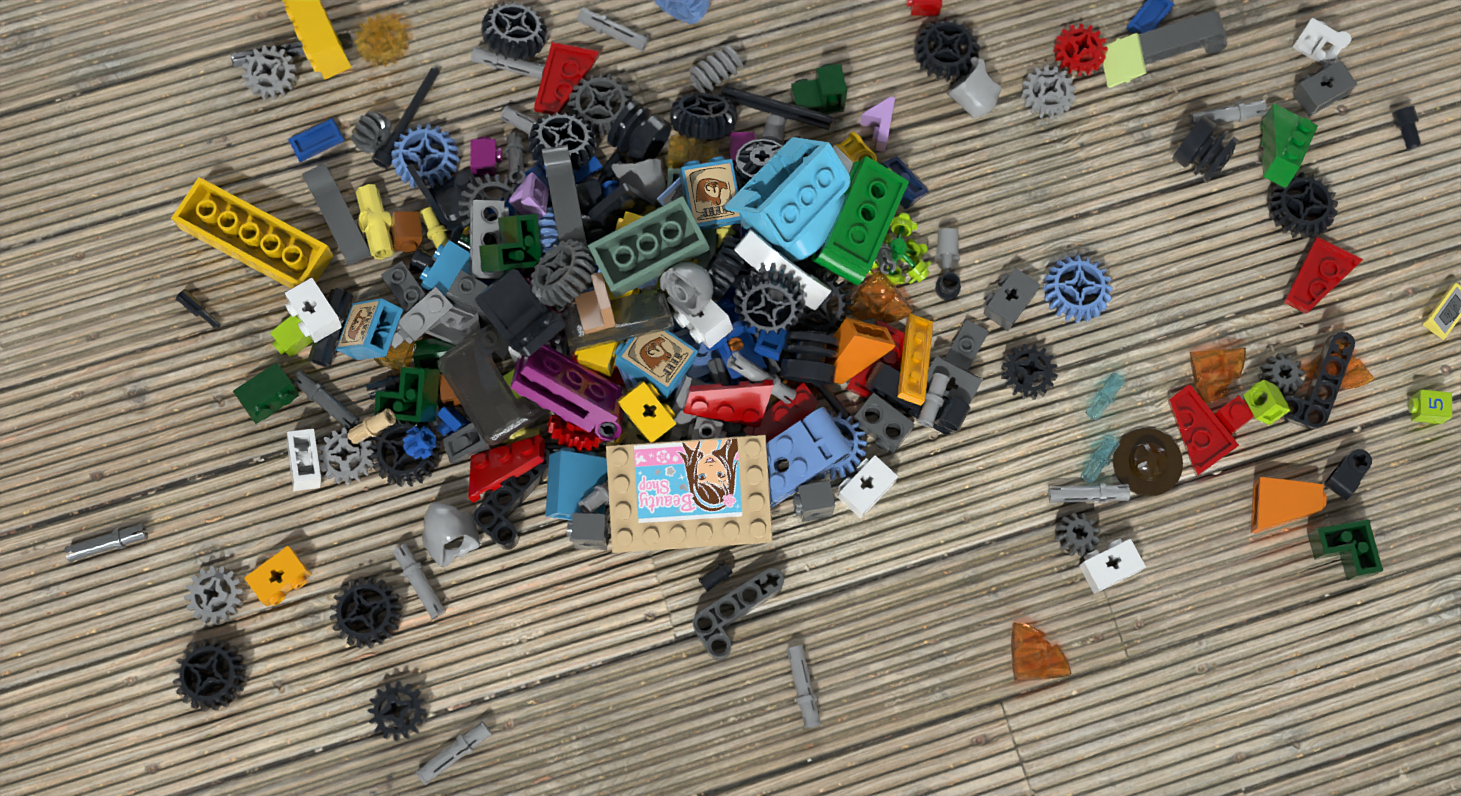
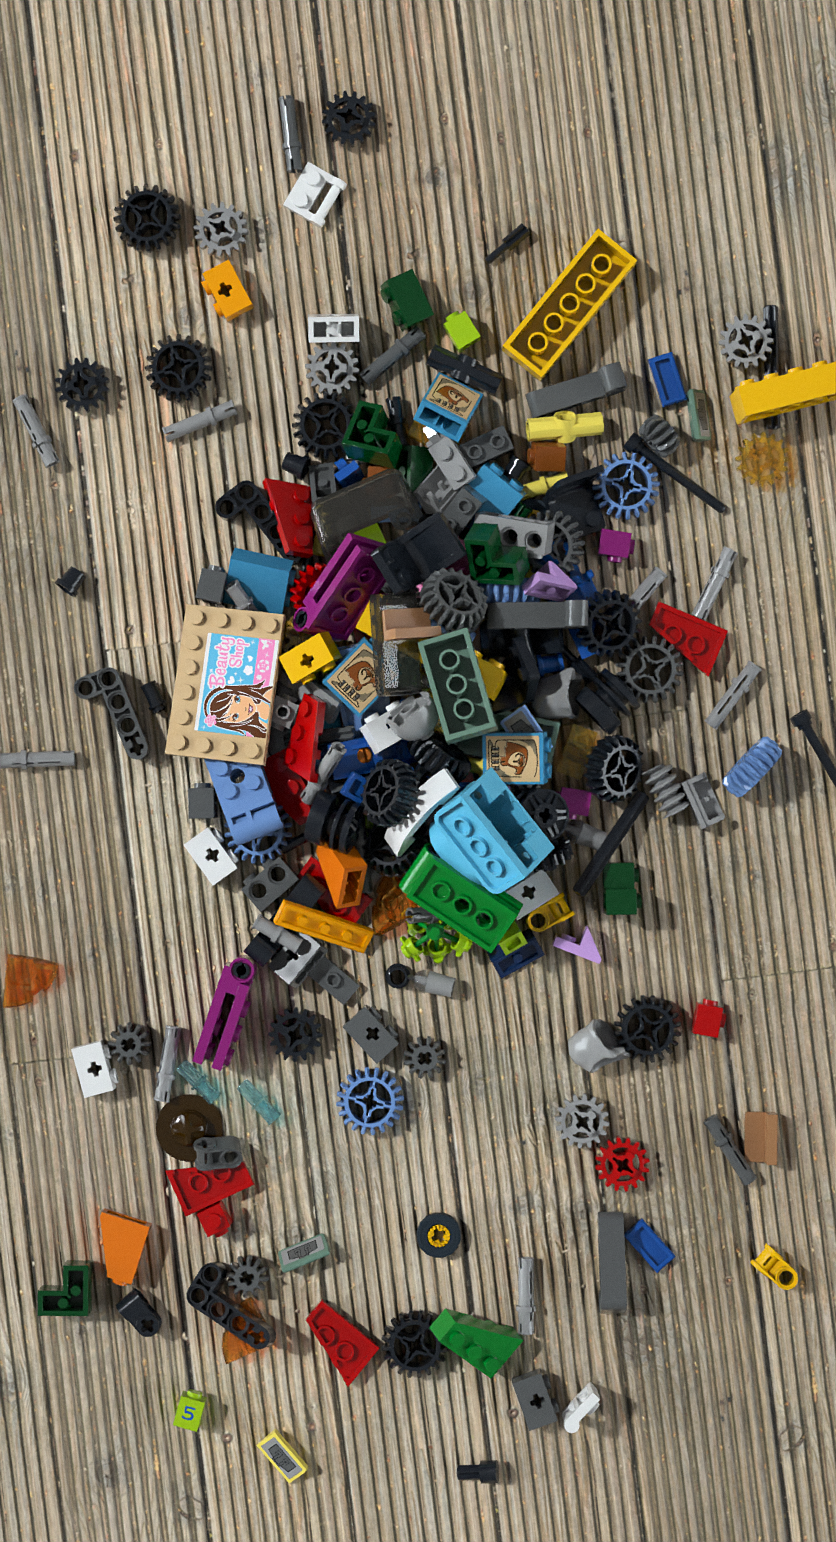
camera: 100 degrees right, 15 degrees up
(86, 496) = (340, 115): none -> black gear
(163, 515) = (307, 191): none -> white plate
(309, 297) = (491, 354): white brick -> none
(348, 107) = (698, 415): none -> sand green slope
(371, 426) = (349, 397): tan axle -> none
(419, 442) = (324, 439): blue gear -> none
(443, 525) = (242, 454): light grey piece -> none
(450, 474) = (296, 465): none -> black piece
(514, 31) = (759, 581): black gear -> none
(515, 153) = (611, 575): dark grey pin -> none
(609, 684) = (71, 581): none -> black piece
(729, 33) = (702, 800): none -> light grey hinge
(1022, 235) = (424, 1048): none -> dark grey gear
(1024, 439) = (235, 983): none -> magenta hinge
(1124, 60) = (601, 1204): yellowish green piece -> none
(1166, 422) = (217, 1153): none -> dark grey piece
(1191, 192) = (438, 1248): none -> black bush
(1205, 149) = (486, 1260): black wheel -> none
(1215, 371) = (266, 1214): clear orange brick -> none
(1244, 325) = (304, 1252): none -> slope
(1275, 404) = (218, 1251): lime brick -> none

